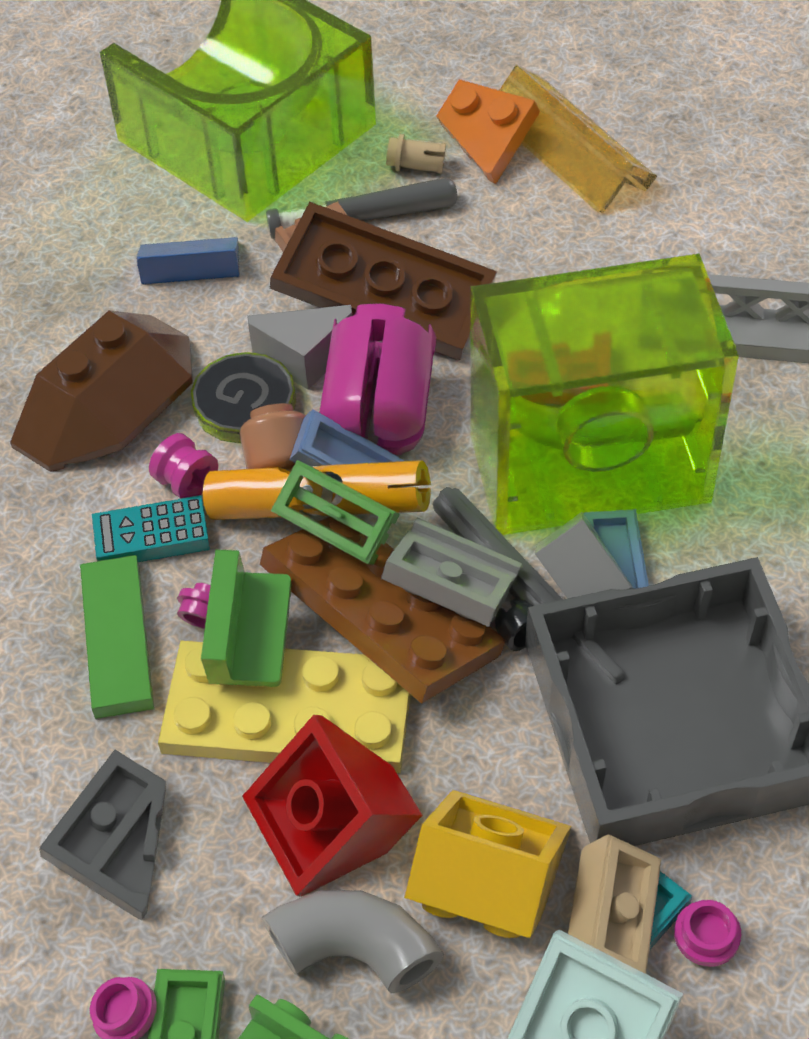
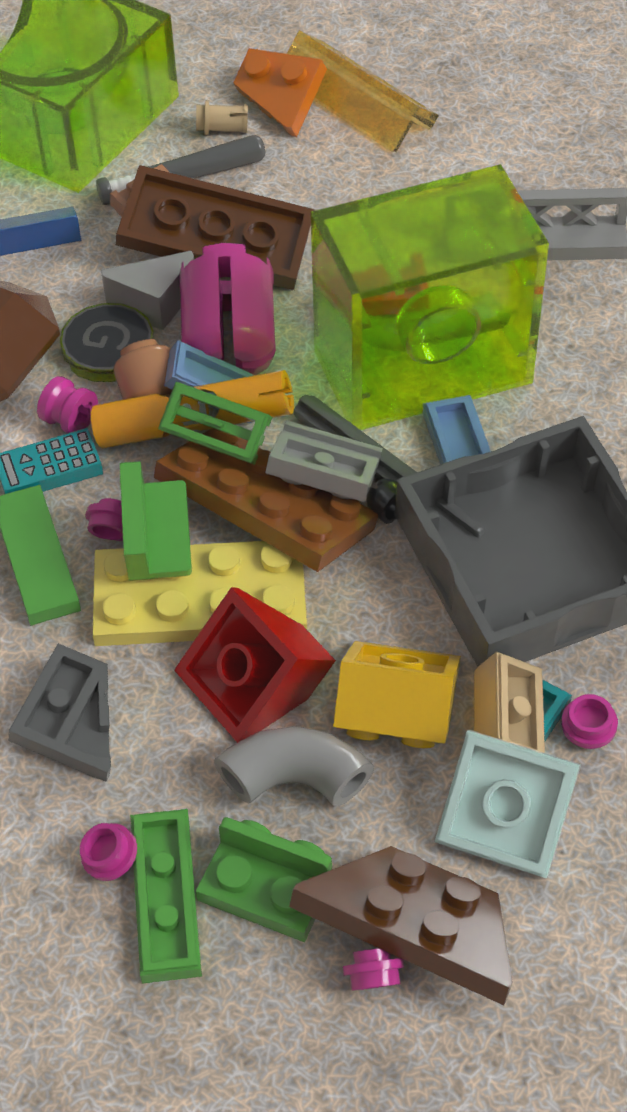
camera: 10 degrees left, 0 degrees up
(580, 560) = (431, 438): light grey slope -> none

